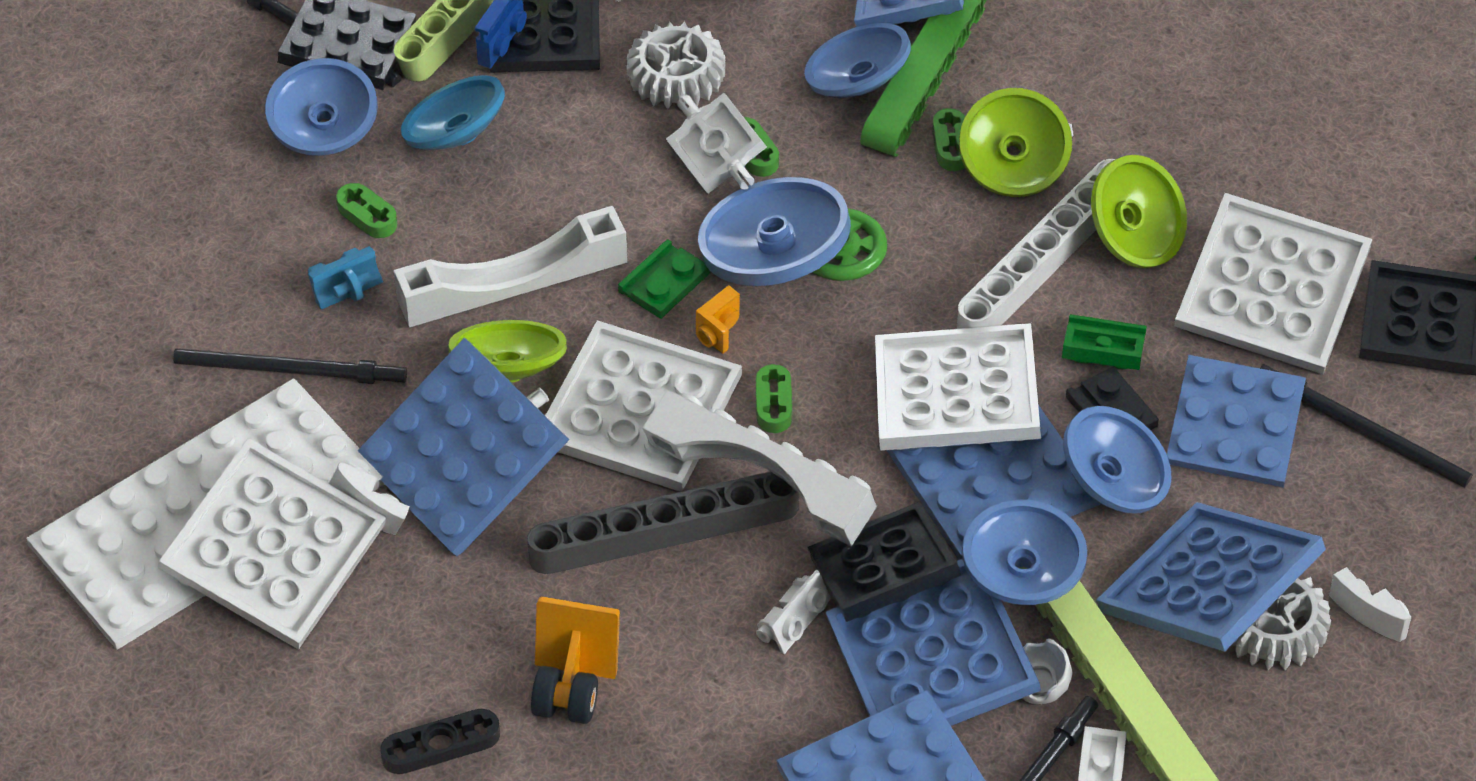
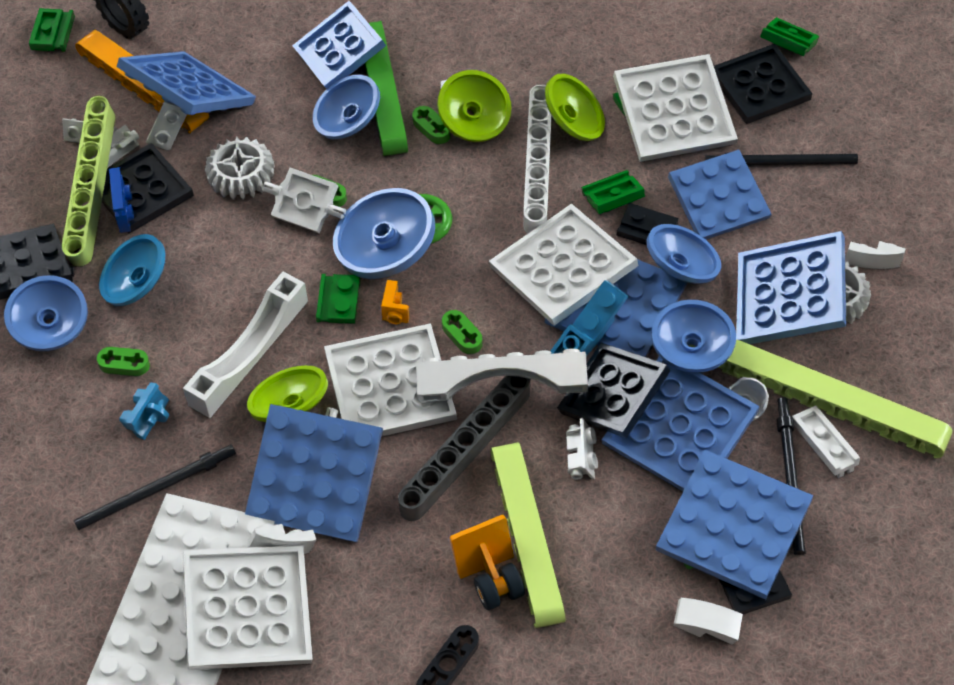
camera: 35 degrees left, 5 degrees up
(644, 661) = (529, 537): none -> yellowish green beam
(923, 473) = (593, 320): none -> dark azure slope

